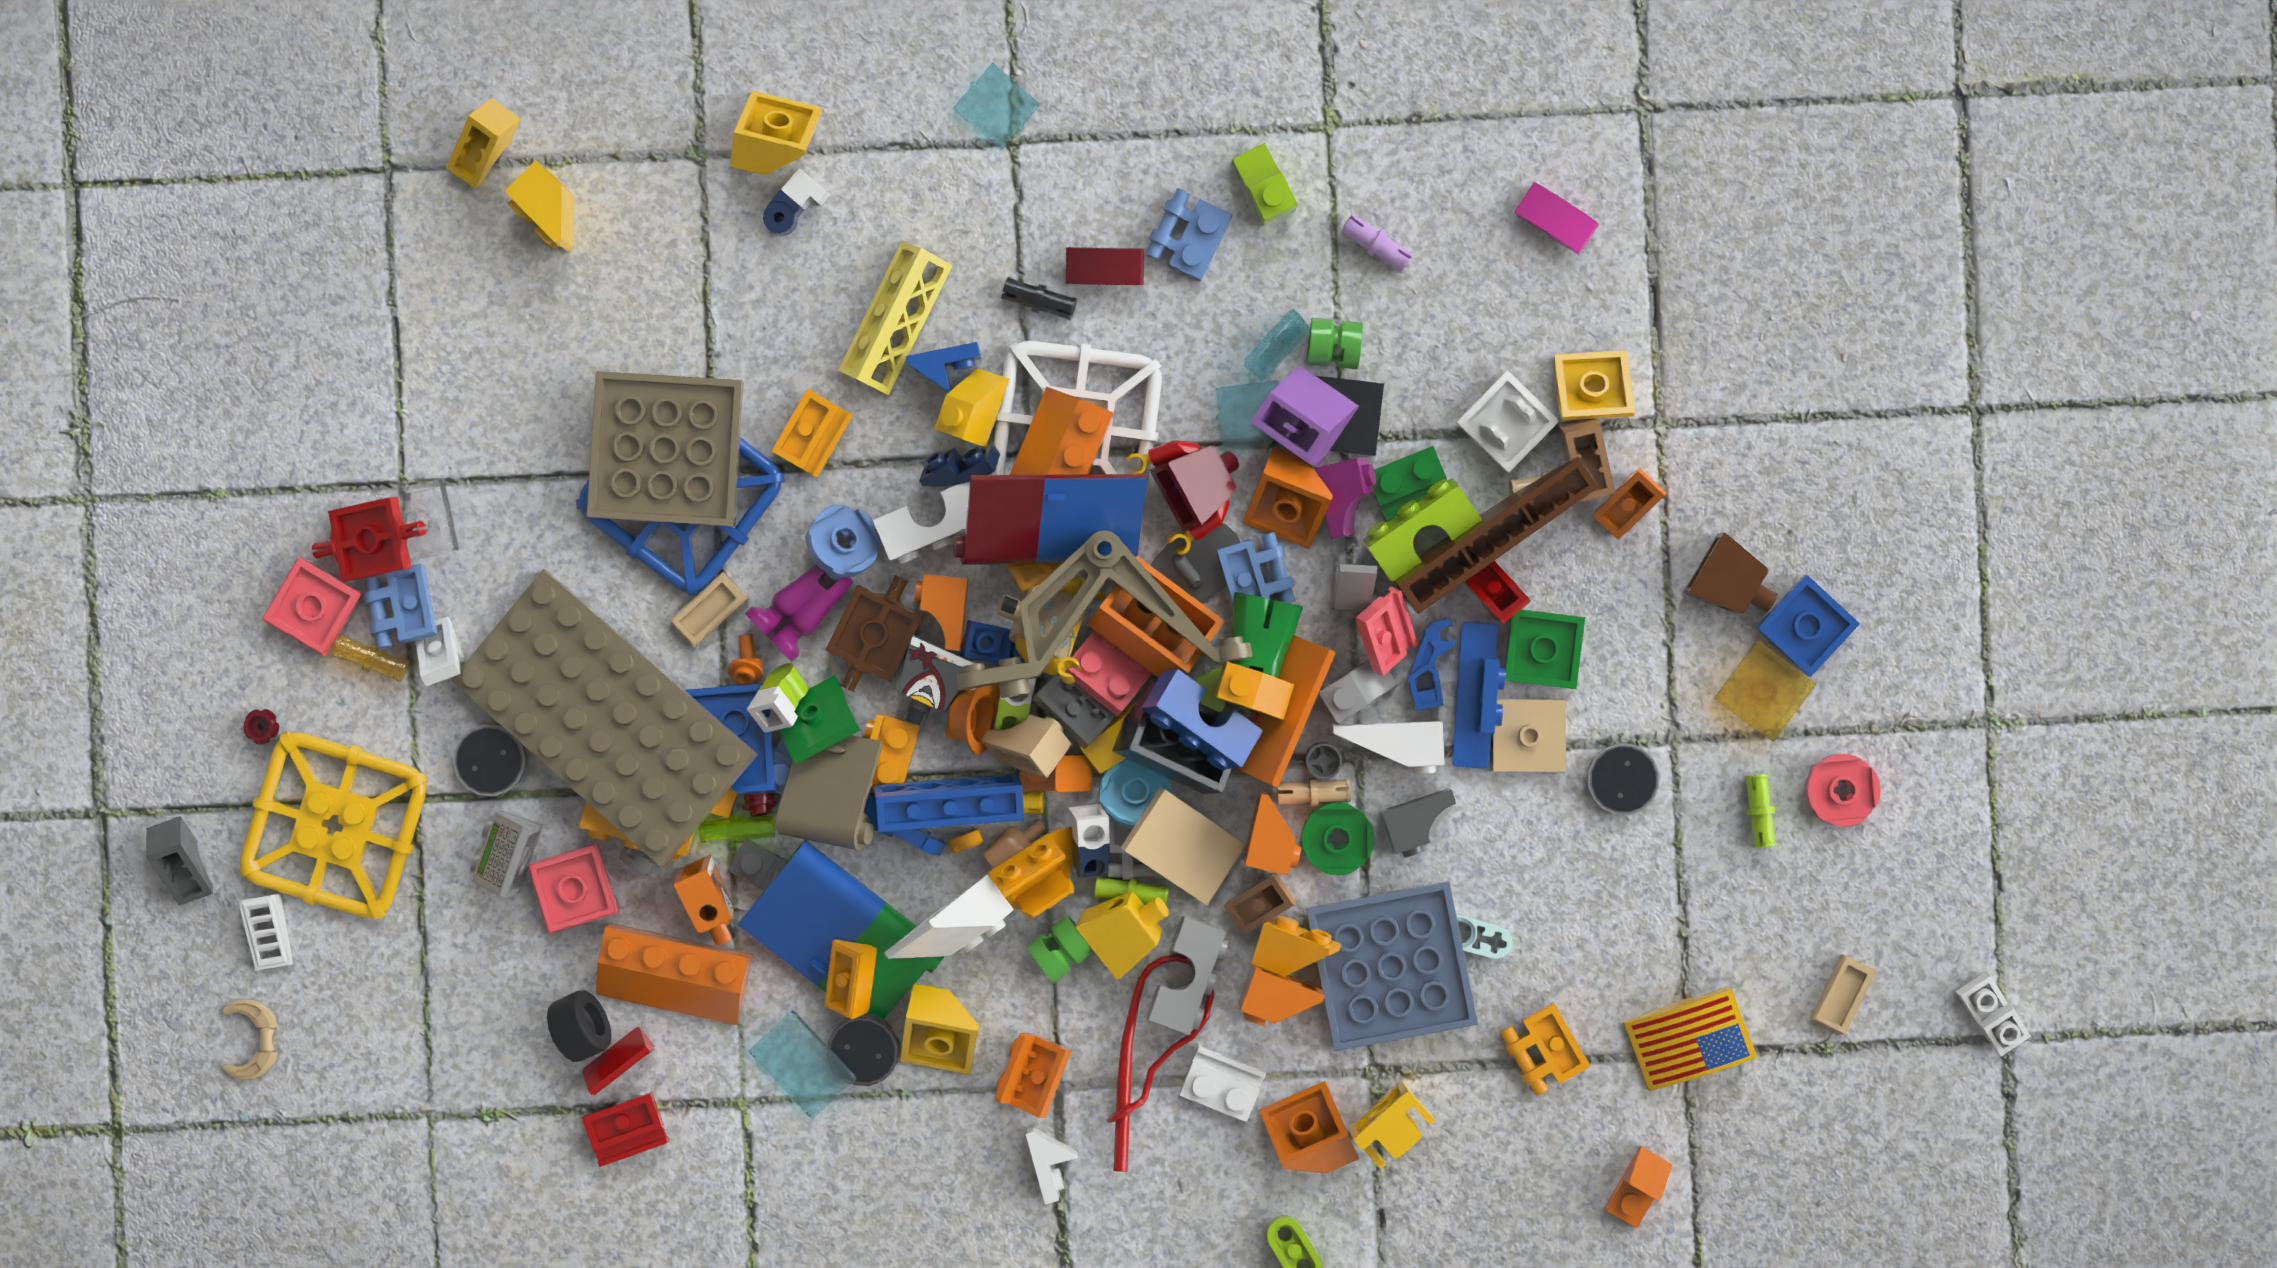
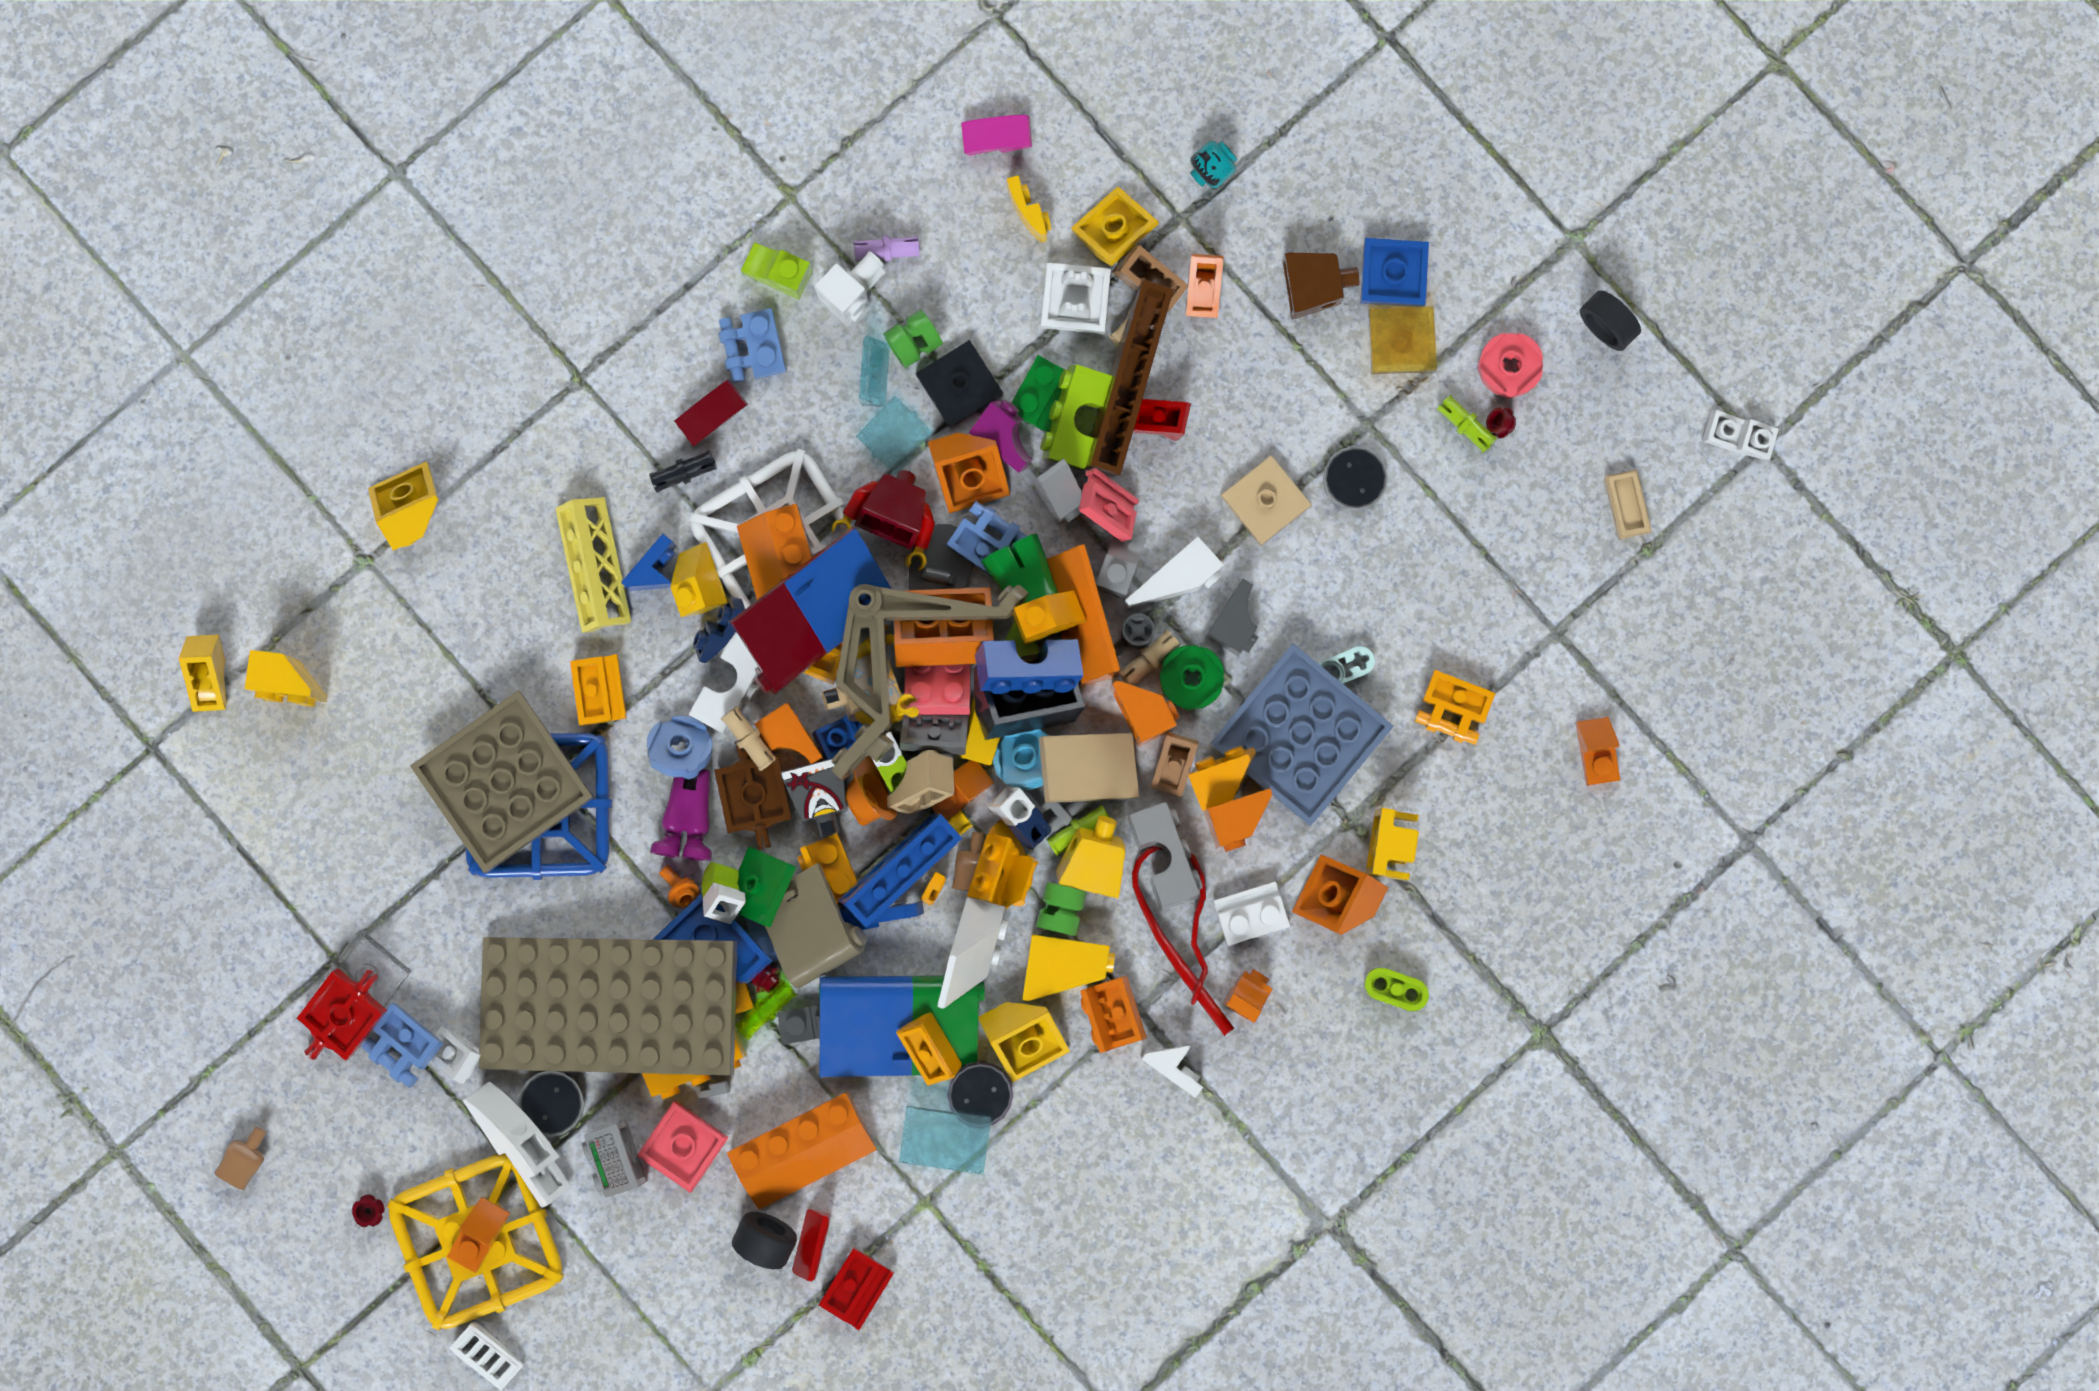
camera: 40 degrees left, 5 degrees down
(176, 860) = (382, 1355): dark grey arch -> none
(187, 596) = (242, 1160): none -> medium nougat piece
(312, 606) = (338, 1095): coral plate -> none
(339, 824) = (478, 1234): none -> orange slope
(370, 658) = (408, 1099): clear yellow pin -> none
(437, 770) = (517, 1136): none -> white slope
(702, 885) = (771, 1069): orange torso -> none
(709, 609) = (623, 872): tan tile -> none
(791, 201) = (456, 541): leg -> none
(908, 583) = (748, 738): none -> tan pin
(997, 106) = (548, 364): clear light blue piece -> none
(1024, 998) = (1063, 965): none -> yellow slope
(1161, 1153) = (1248, 995): none -> orange arch
(1305, 415) = (931, 402): medium lavender slope -> none
(1309, 256) = (846, 291): none -> white brick
(1425, 658) = (1150, 501): blue piece -> none
(1477, 695) = (1207, 500): blue bracket -> none
(1528, 318) = (1031, 215): none -> yellow slope
(1544, 649) = (1227, 432): green plate -> none
(1690, 1039) = (1548, 618): slope -> none
(1726, 400) = (1213, 164): none -> teal head
(1791, 833) = (1501, 422): none -> dark red plate
(1961, 823) = (1610, 320): none -> black tyre

